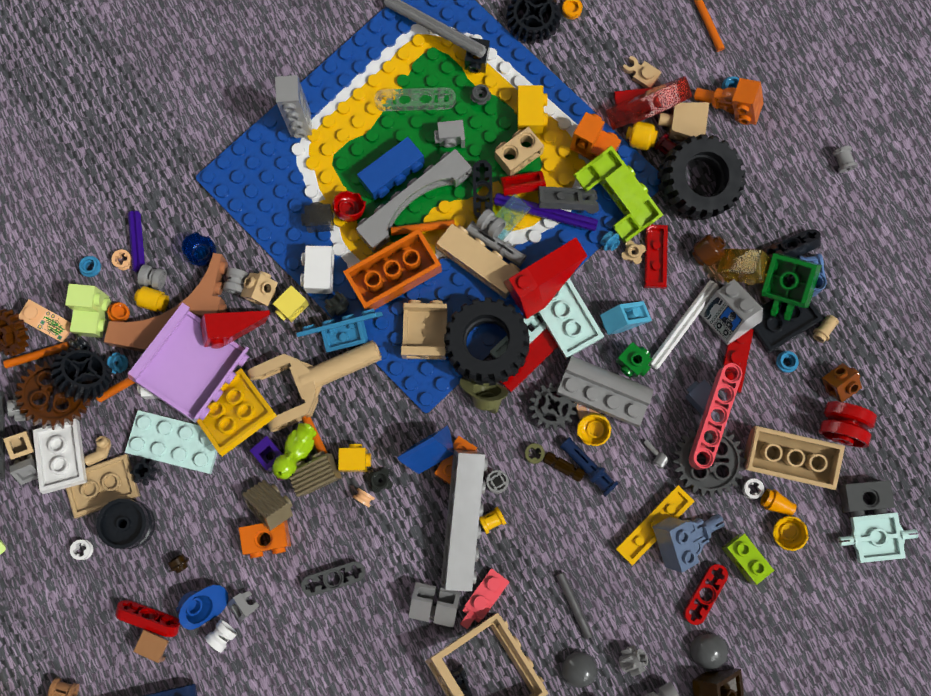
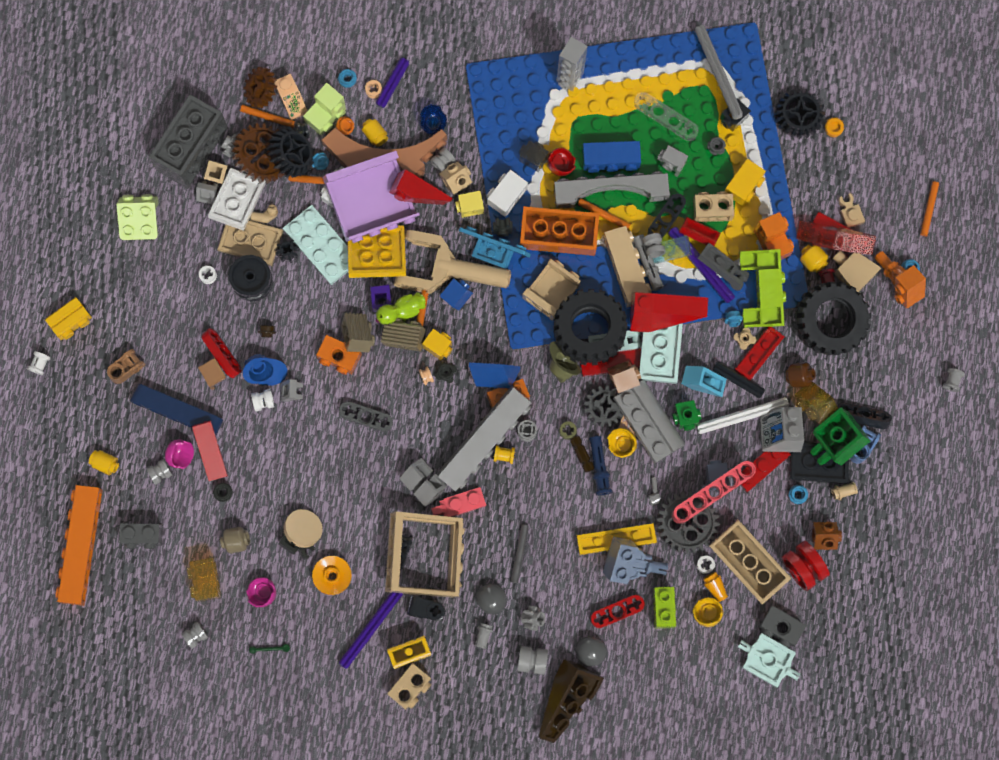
camera: 30 degrees right, 0 degrees up
(152, 277) = (386, 116): light grey wheel -> none
(337, 398) = (456, 293): none -> blue brick
(552, 365) = (624, 376): none -> brick
(651, 294) = (738, 379): none -> black axle

